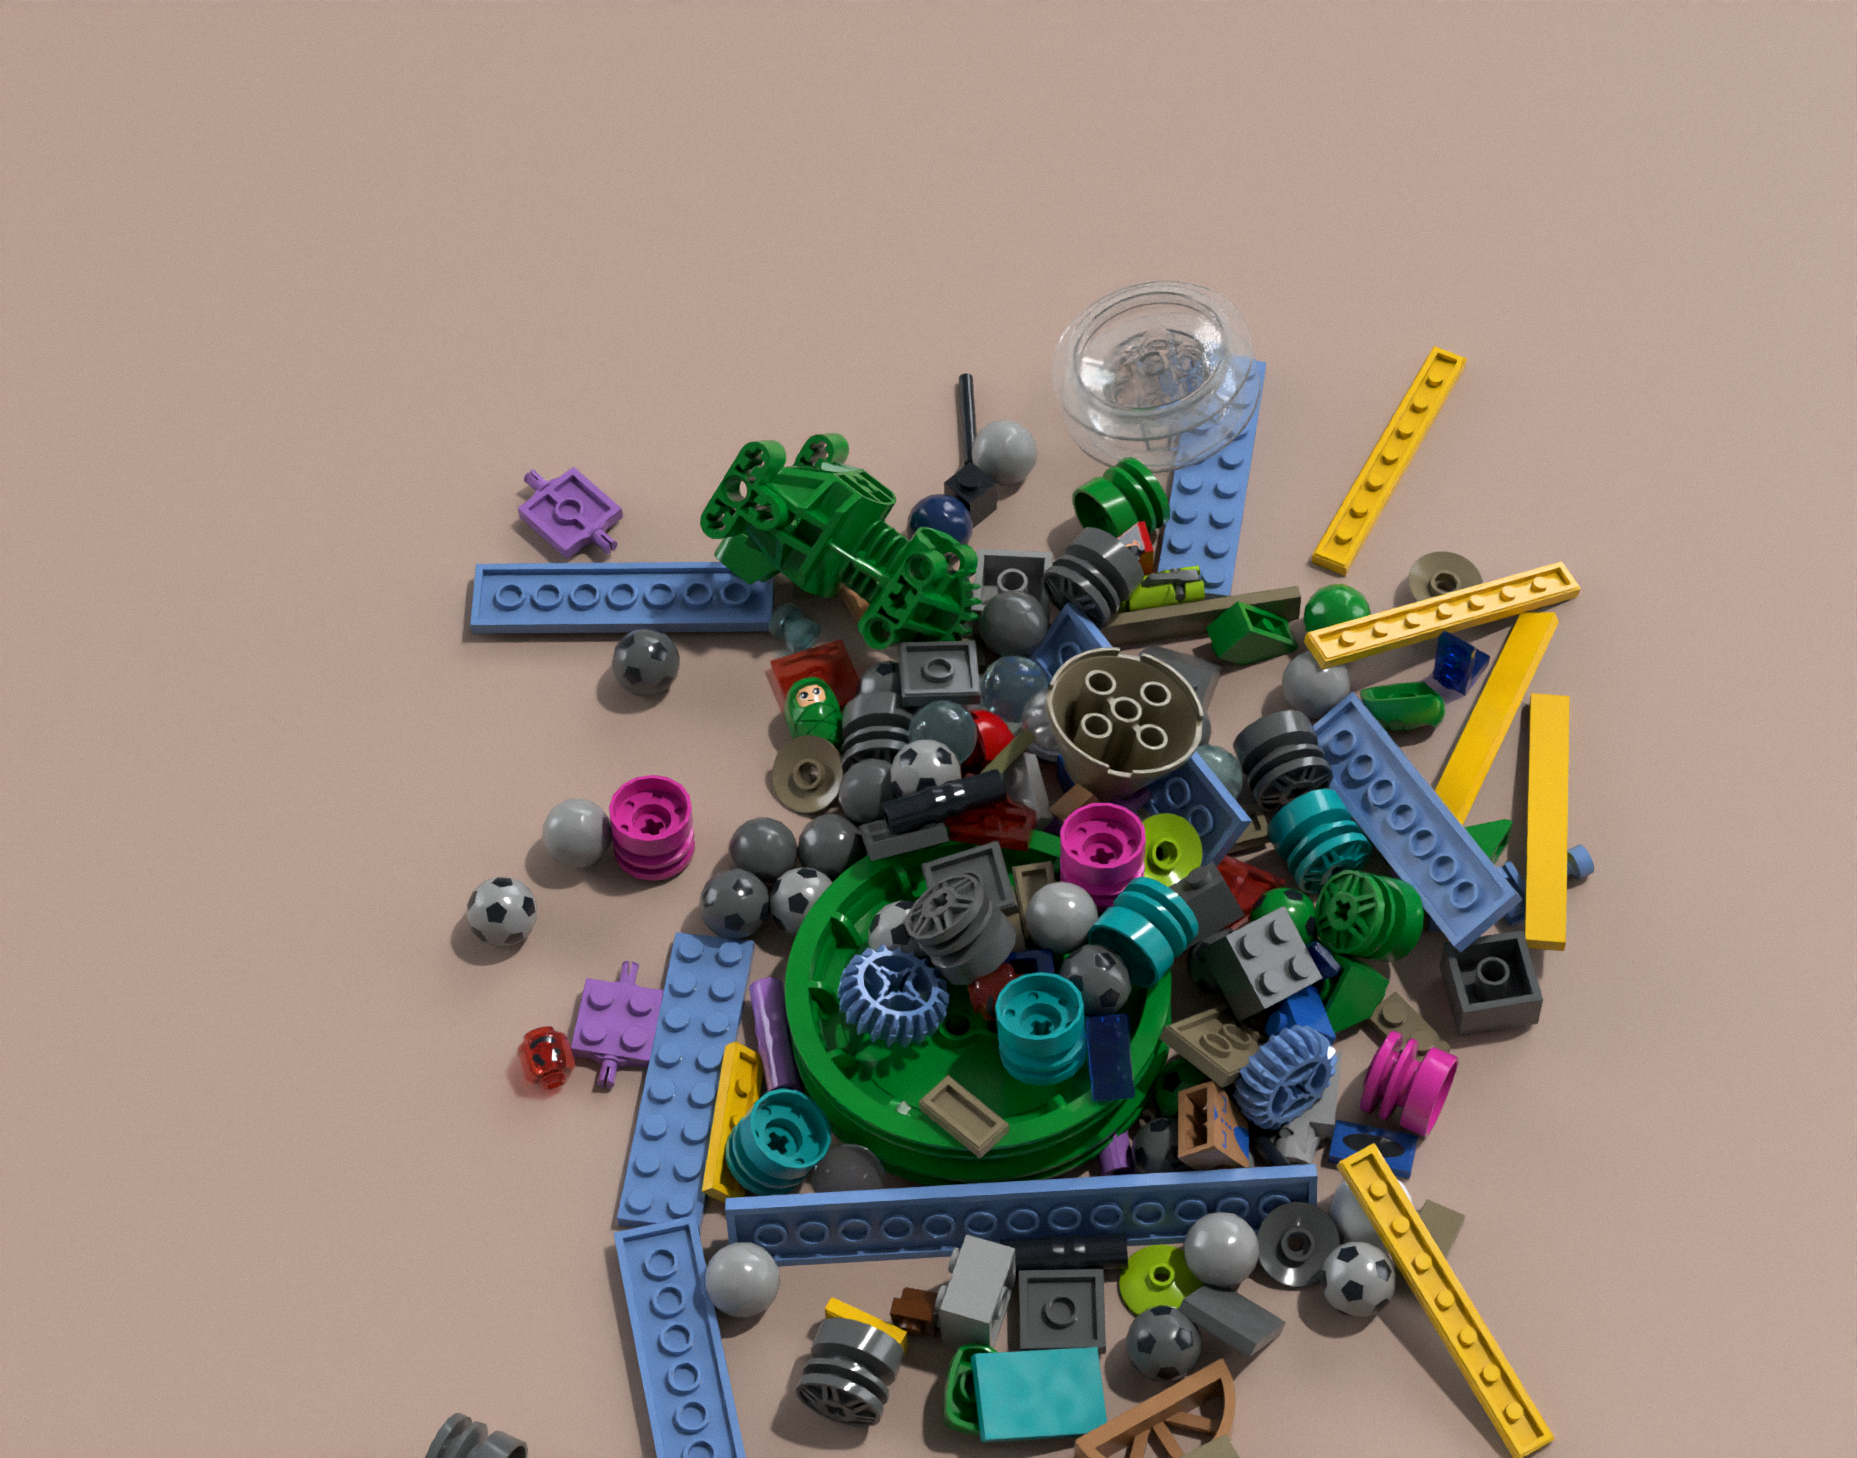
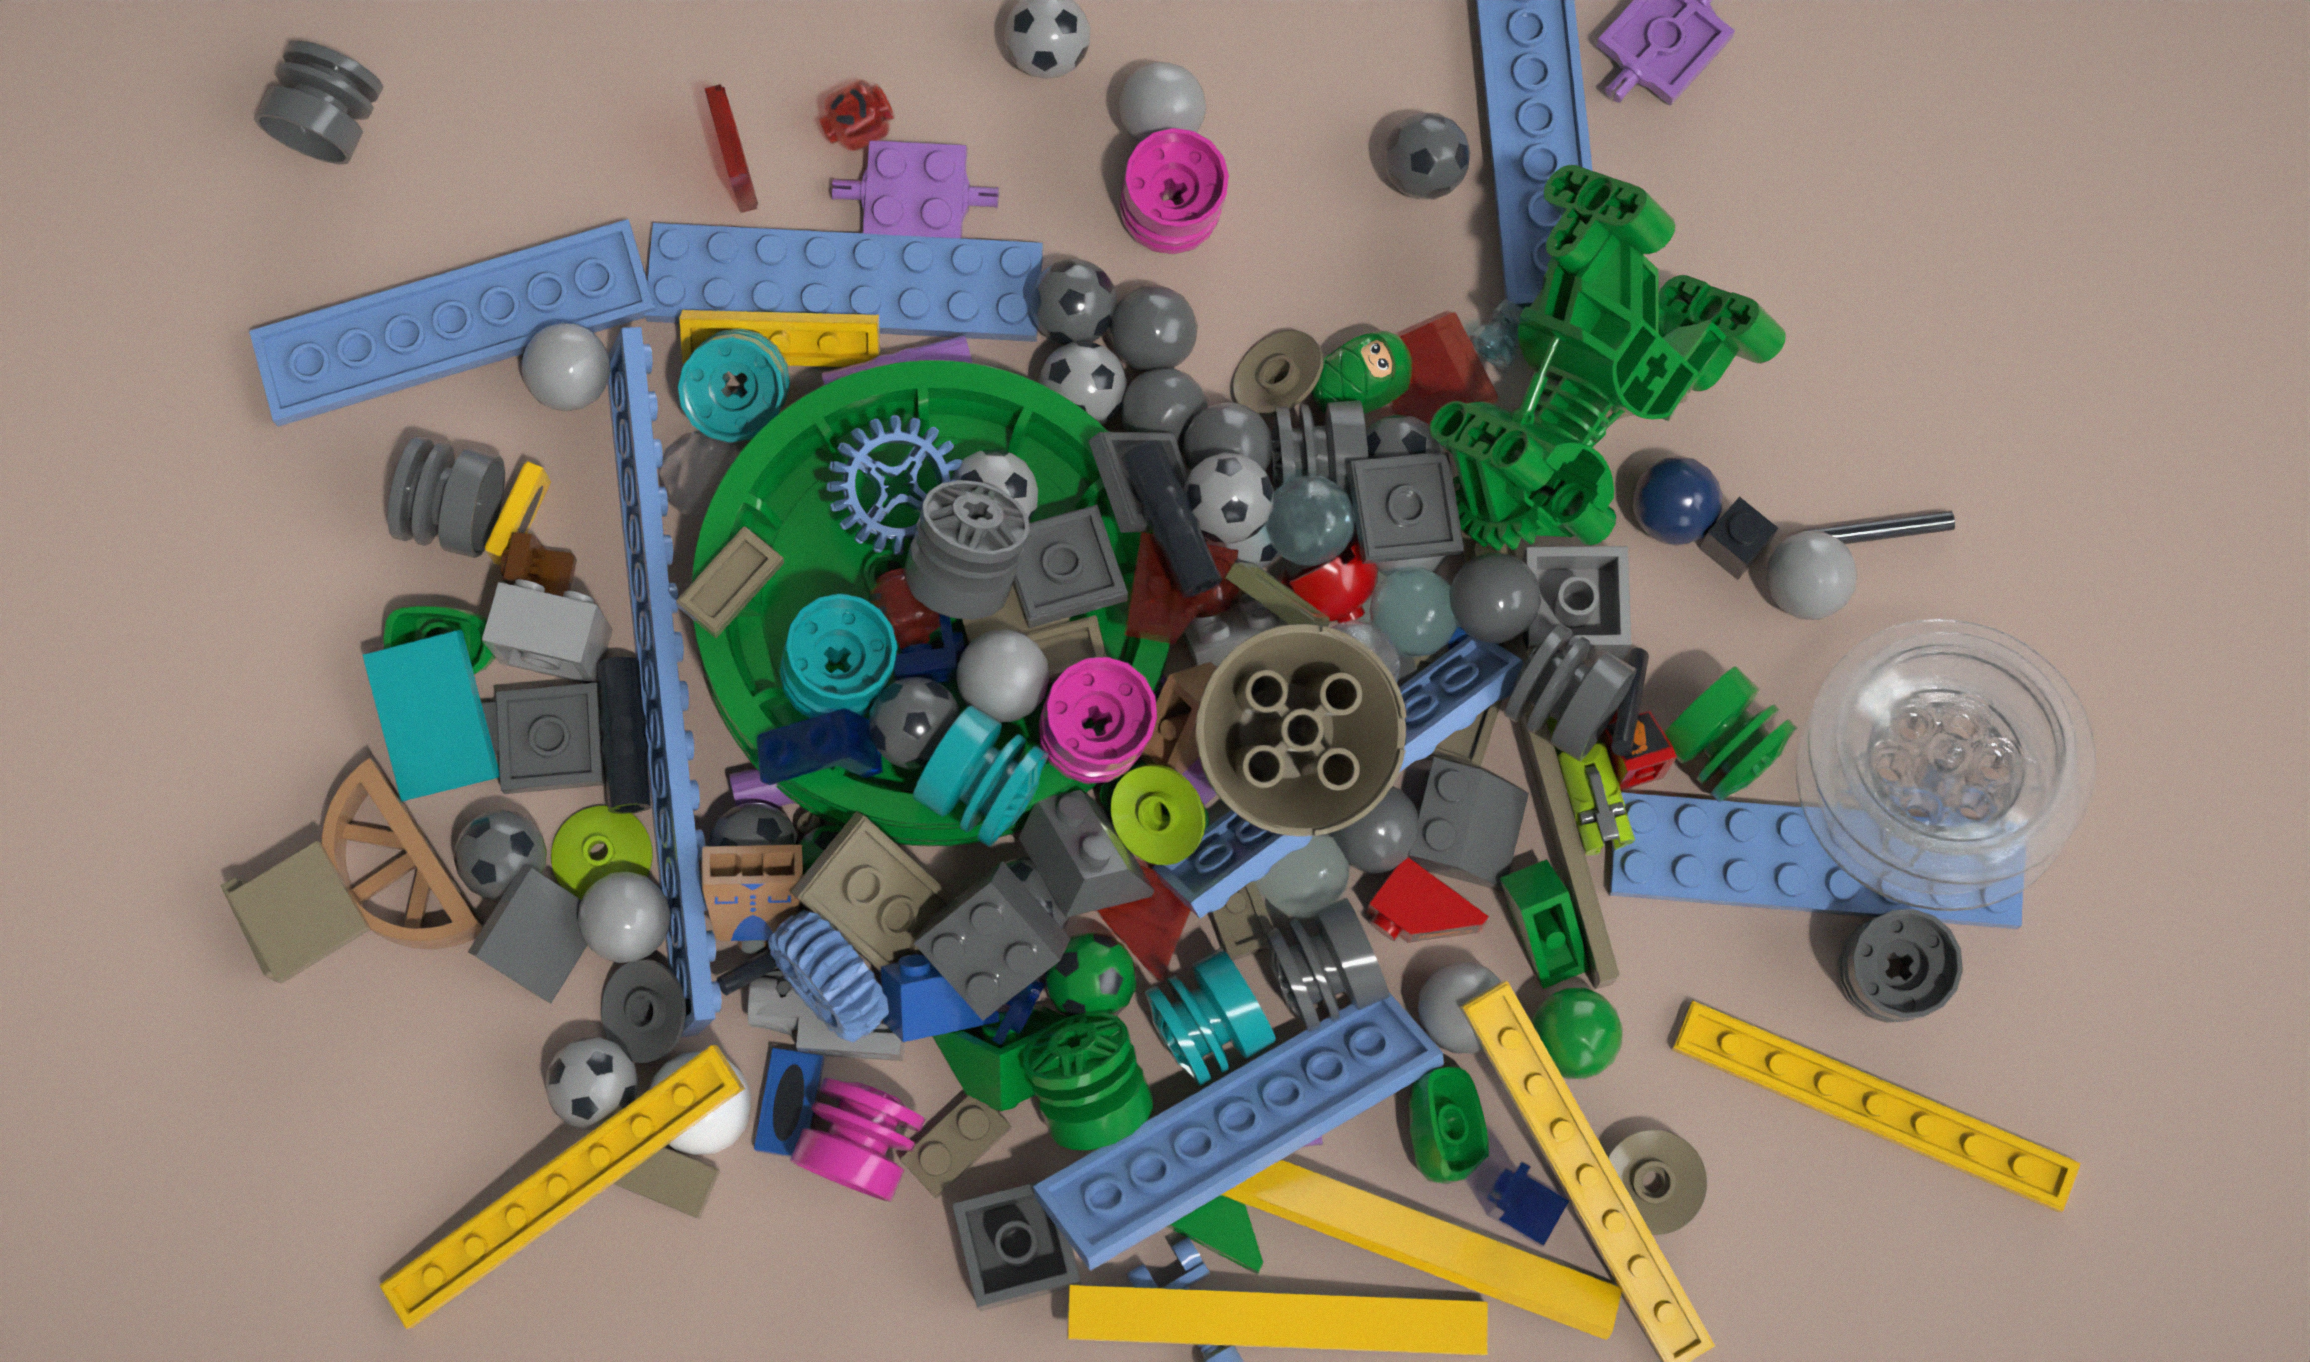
camera: 85 degrees right, 20 degrees up
(567, 1141) = (731, 148): none -> clear red tile
(1234, 707) = (1421, 907): none -> red slope
(1296, 423) = (1928, 972): none -> dark grey wheel

